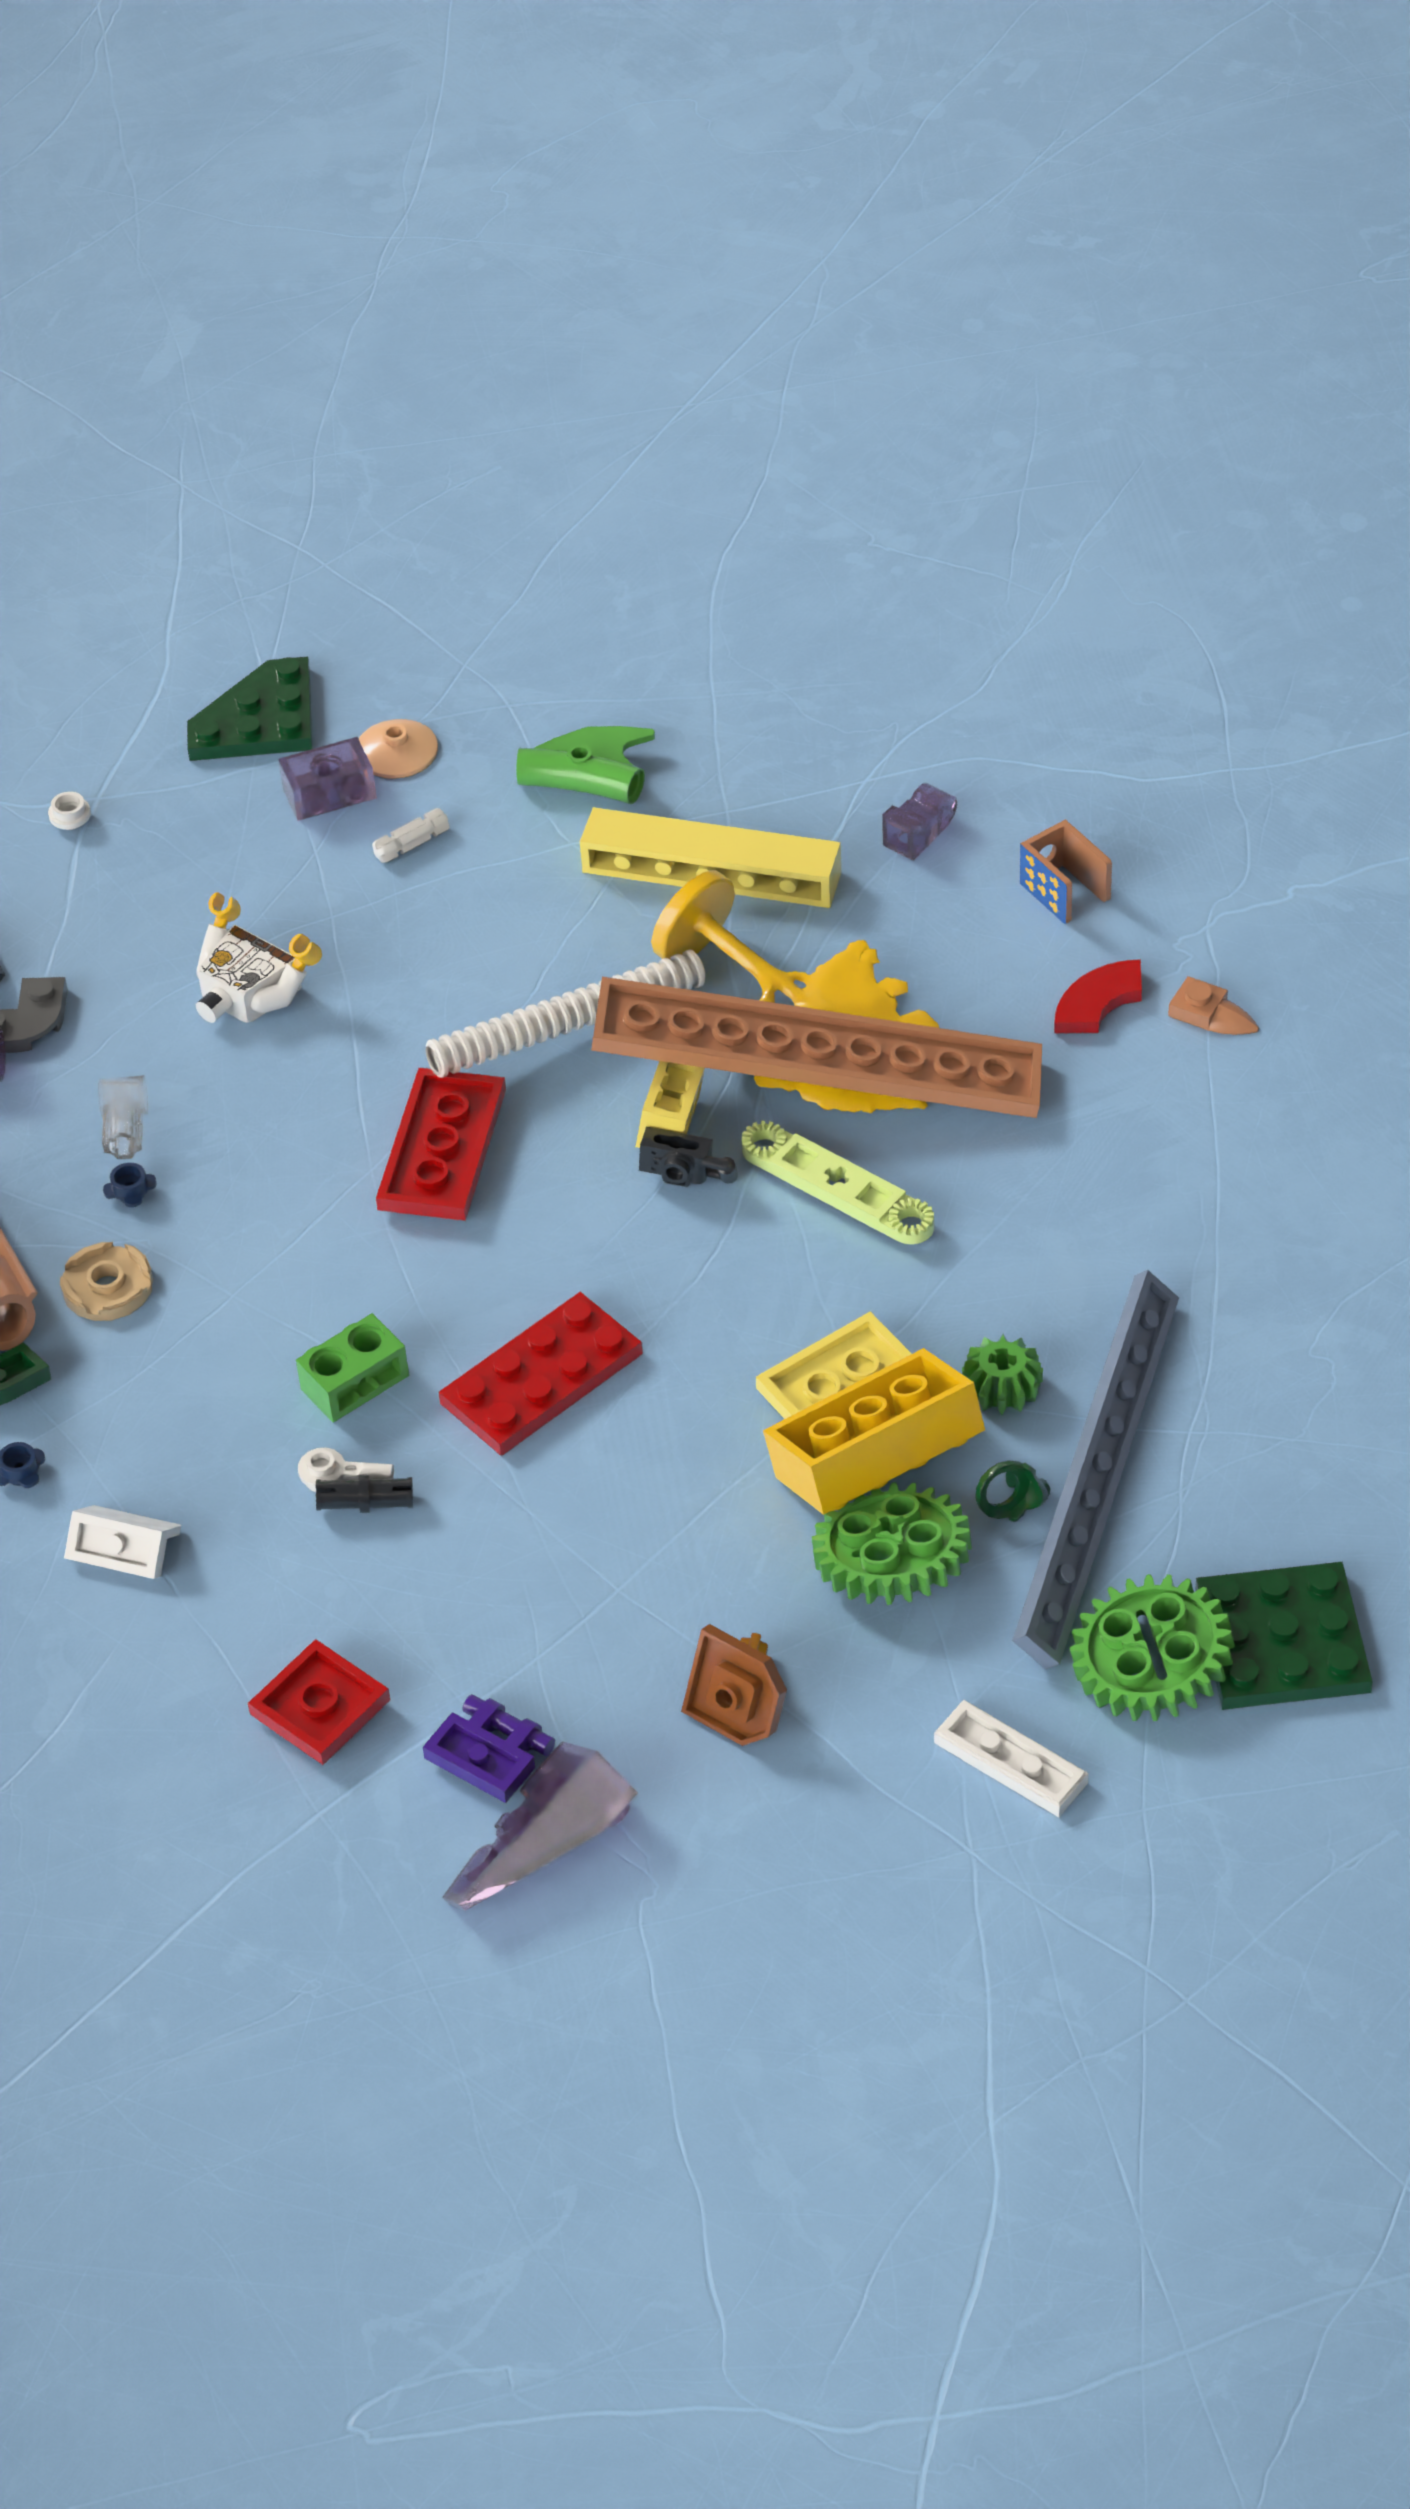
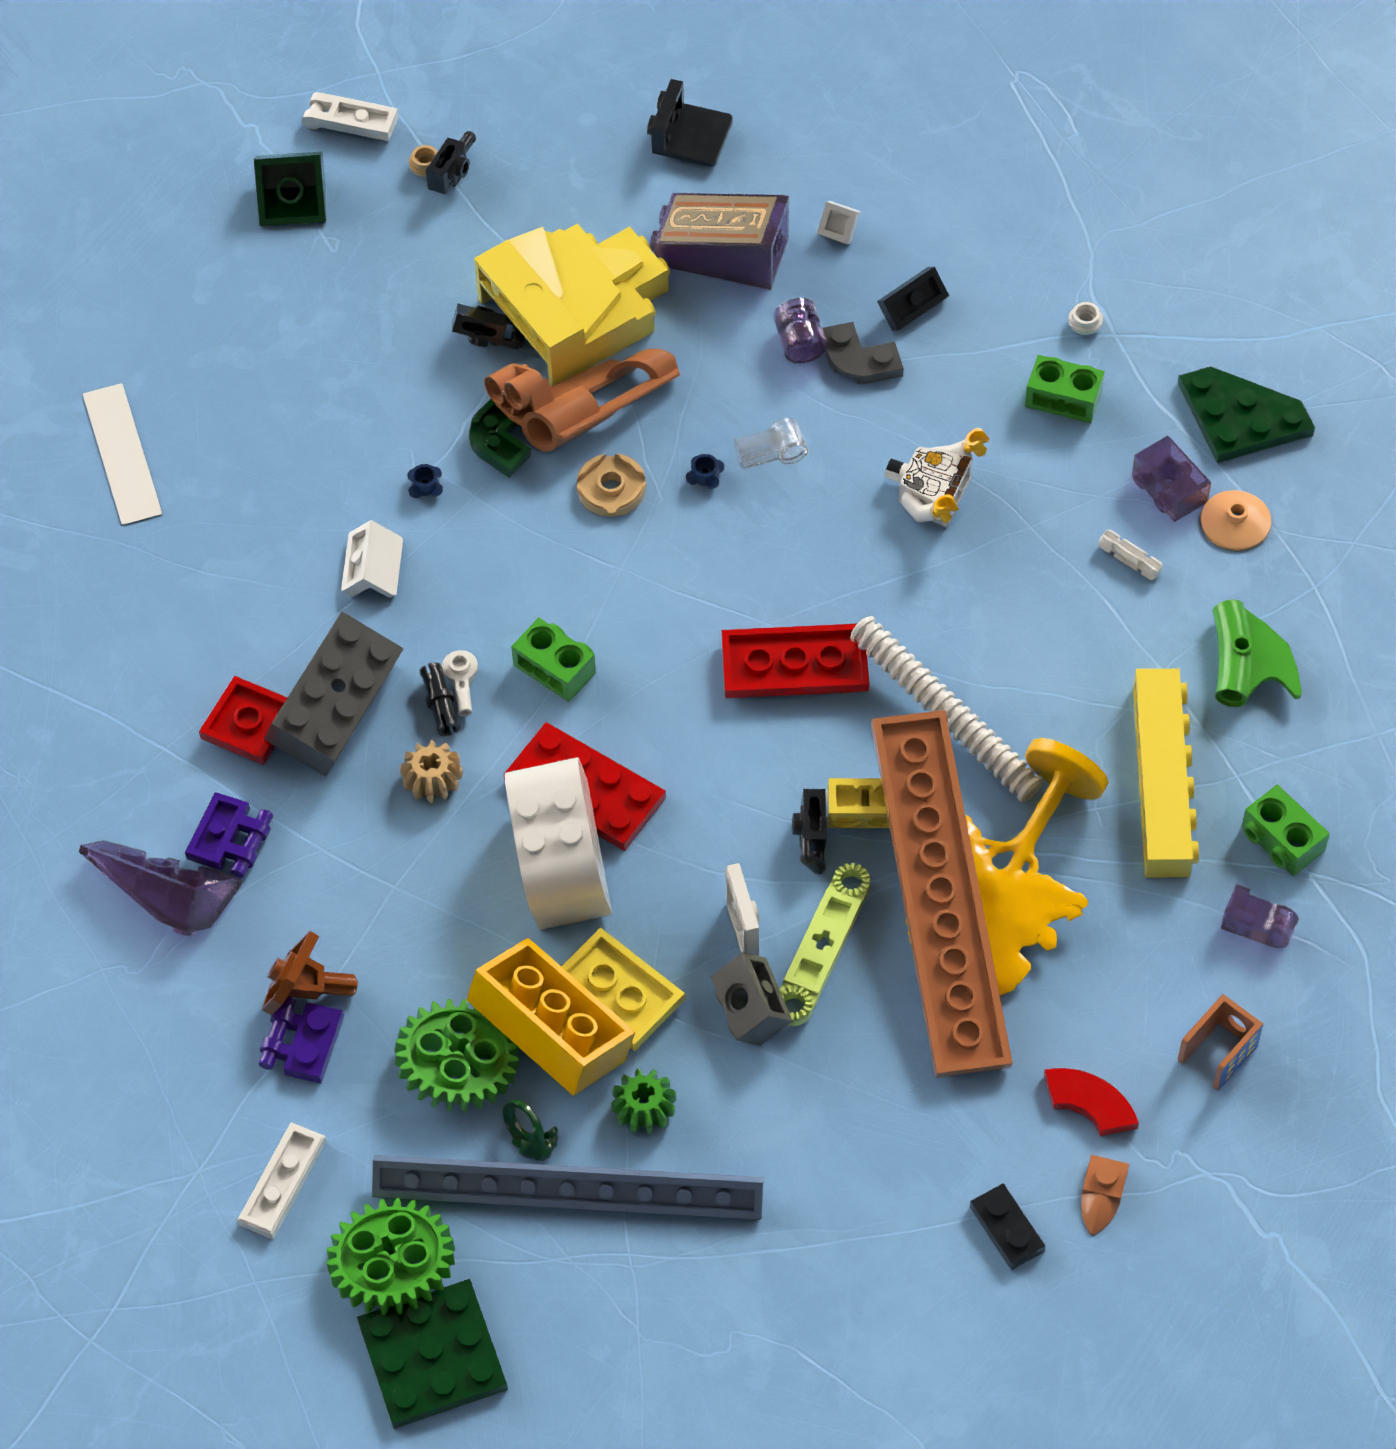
camera: 75 degrees right, 10 degrees up
(163, 842) = (1058, 387): none -> bright green brick
(326, 1589) = (333, 693): none -> dark grey brick
(471, 1514) = (431, 771): none -> tan gear
(638, 1374) = (557, 843): none -> white brick
(789, 1230) = (742, 910): none -> white plate
(817, 776) = (1291, 825): none -> bright green brick
(827, 1701) = (312, 1044): none -> dark purple plate
(871, 1245) = (751, 999): none -> dark grey brick
(1235, 1092) = (1007, 1226): none -> black plate

